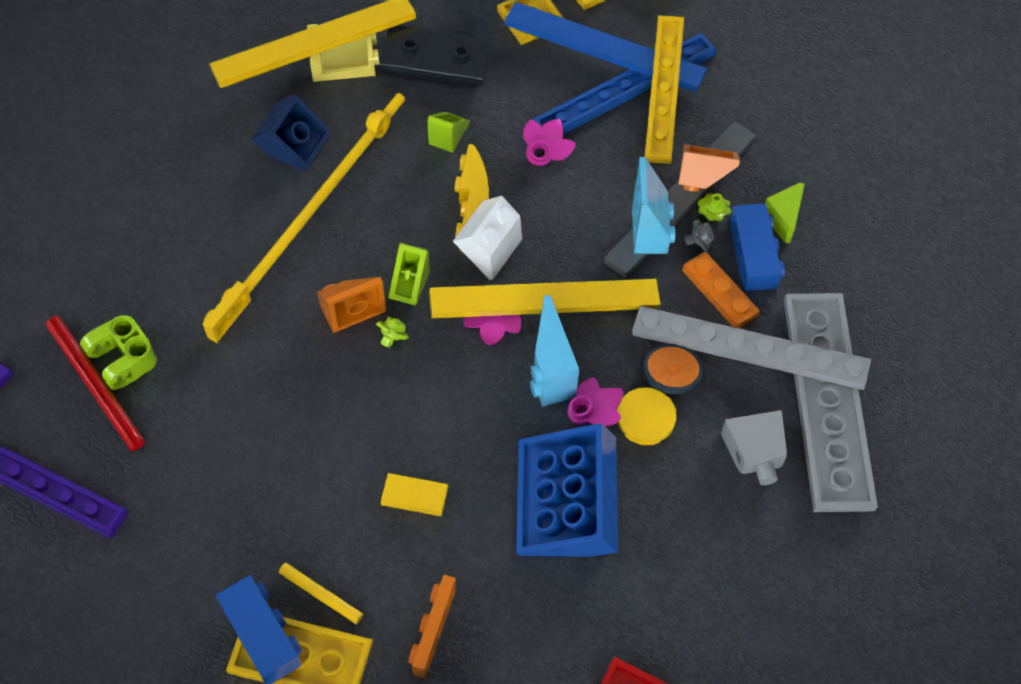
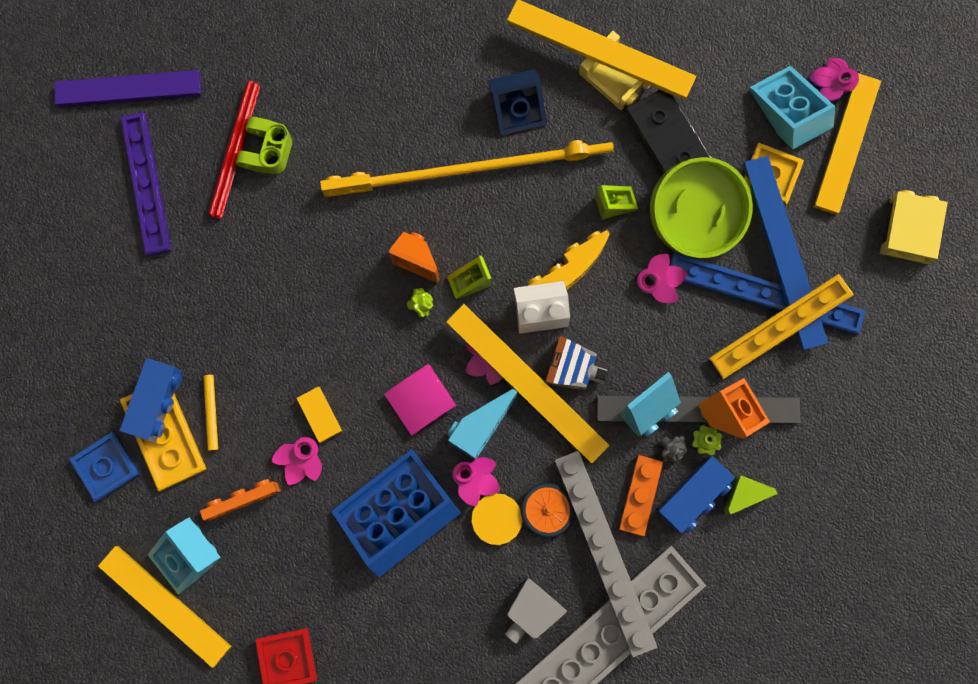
camera: 55 degrees right, 20 degrees up
(442, 550) = (296, 463): none -> dark pink plate
(480, 397) = (420, 399): none -> dark pink slope
(514, 71) = (701, 207): none -> lime piece
(561, 254) = (573, 366): none -> torso

